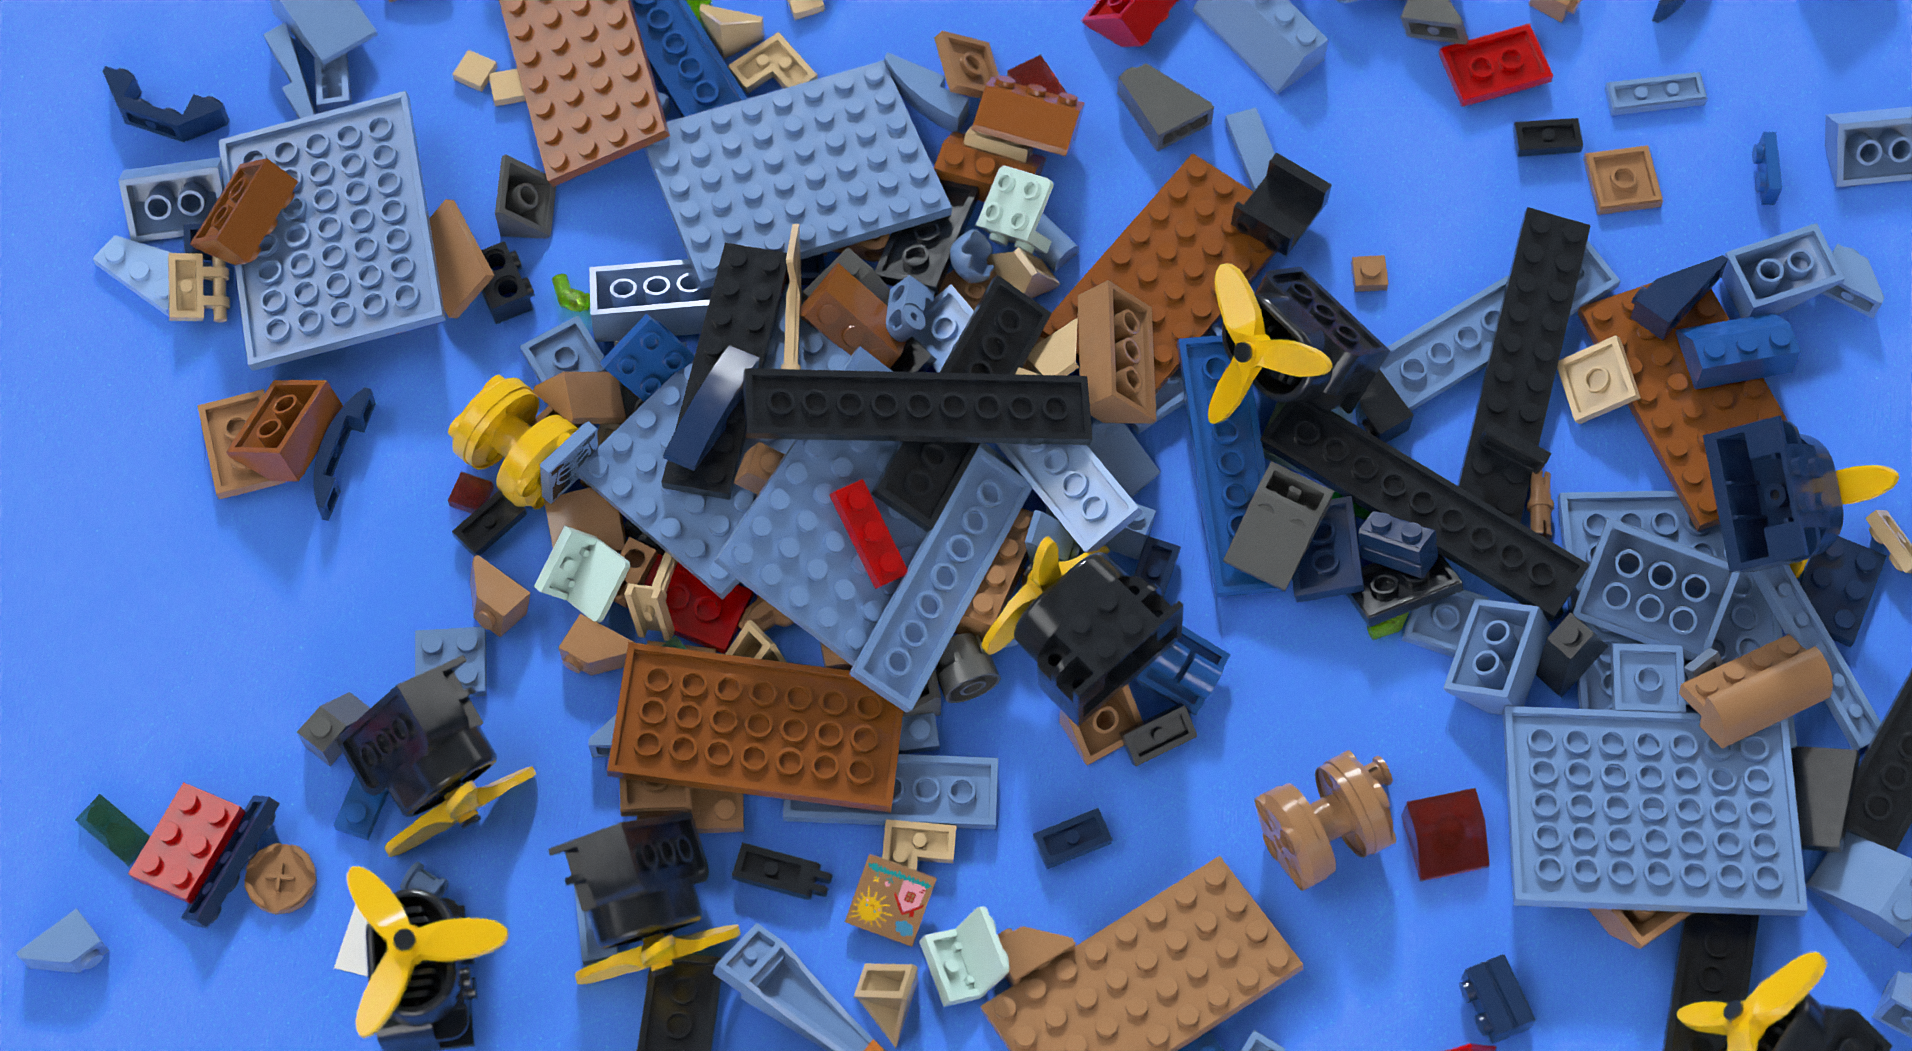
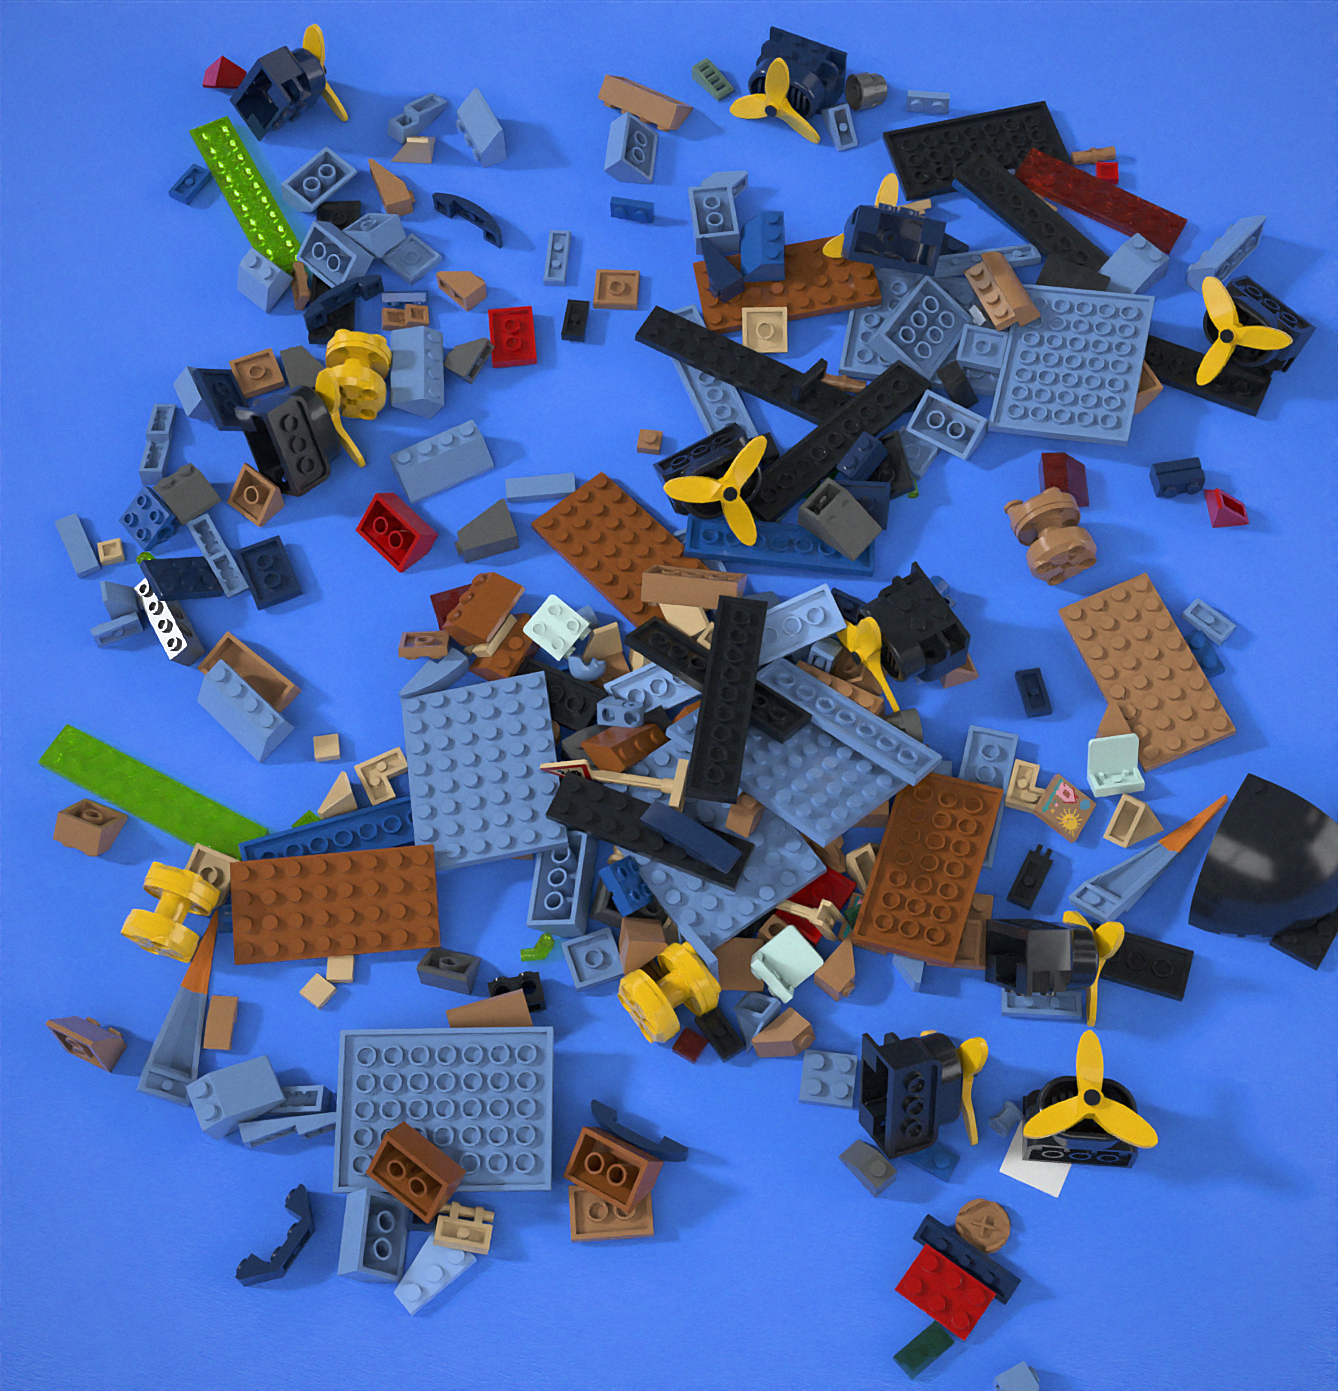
camera: 75 degrees left, 5 degrees down
(523, 561) = (754, 1014): none -> medium blue slope
(869, 533) = (811, 752): red plate -> none
(1158, 734) = (968, 619): black plate -> none
(1282, 205) = (592, 474): black panel -> none

